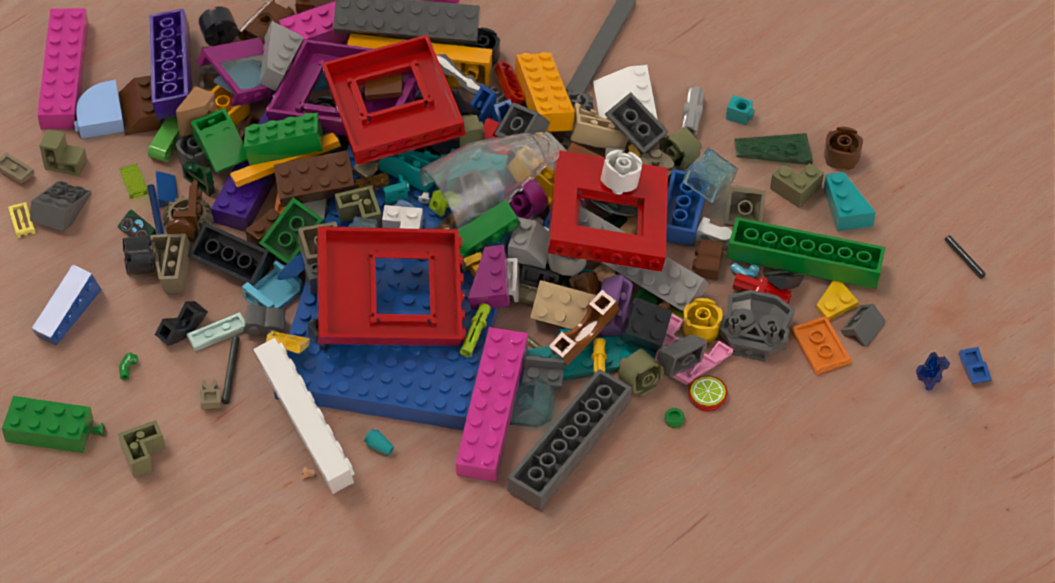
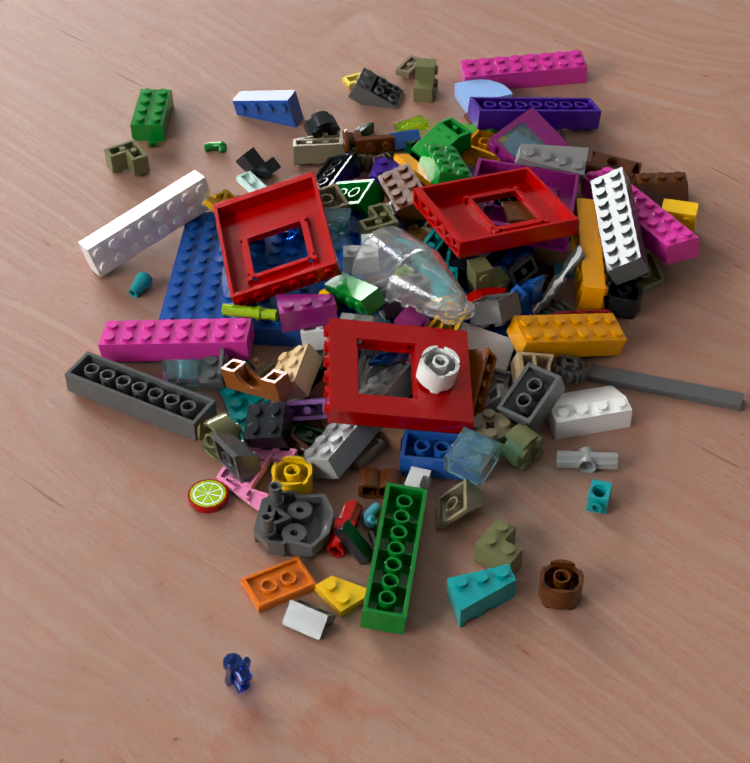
camera: 85 degrees right, 10 degrees down
(196, 105) = (472, 118): medium nougat slope -> none
(218, 26) = (593, 135): black brick -> none
(599, 355) = (234, 405): yellow axle -> none
(674, 418) = (176, 474): green tile -> none
(778, 148) = (552, 532): clear green wing -> none
(967, 259) = (424, 714): black bar -> none
(974, 366) = (254, 726): blue slope -> none

